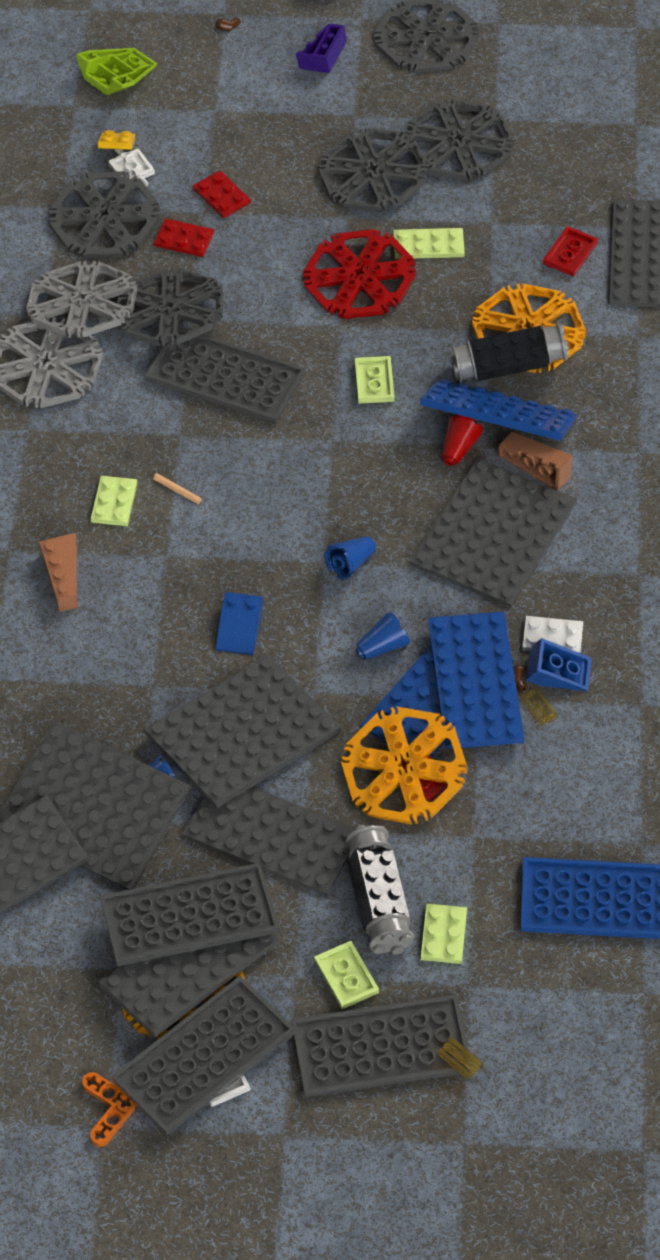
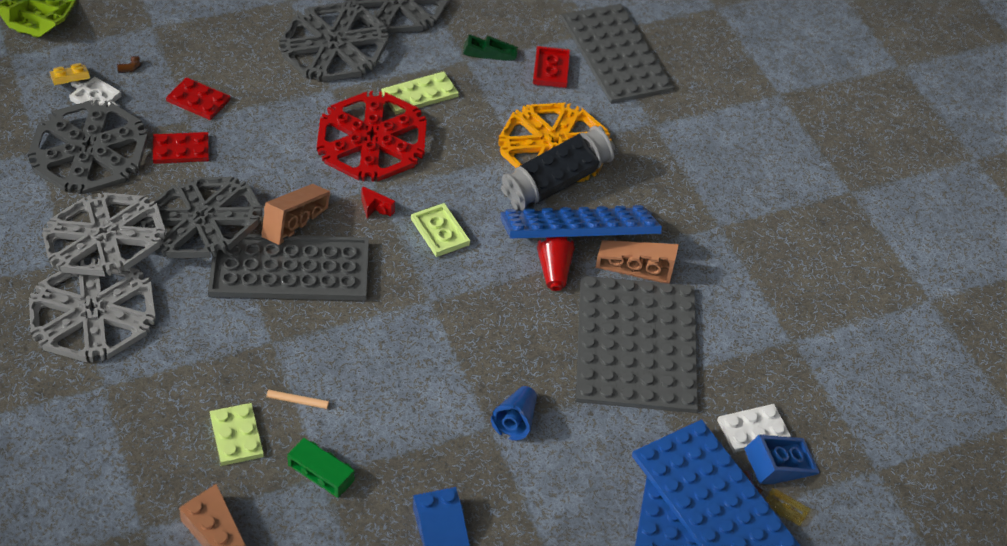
camera: 30 degrees left, 5 degrees down
(167, 548) = (321, 467): none -> green brick
(175, 146) = (133, 65): none -> reddish brown arm
(248, 324) = (293, 211): none -> nougat wedge
(329, 337) = (374, 201): none -> red slope
(382, 638) = (599, 488): blue cone -> none
(520, 216) = (489, 48): none -> dark green slope

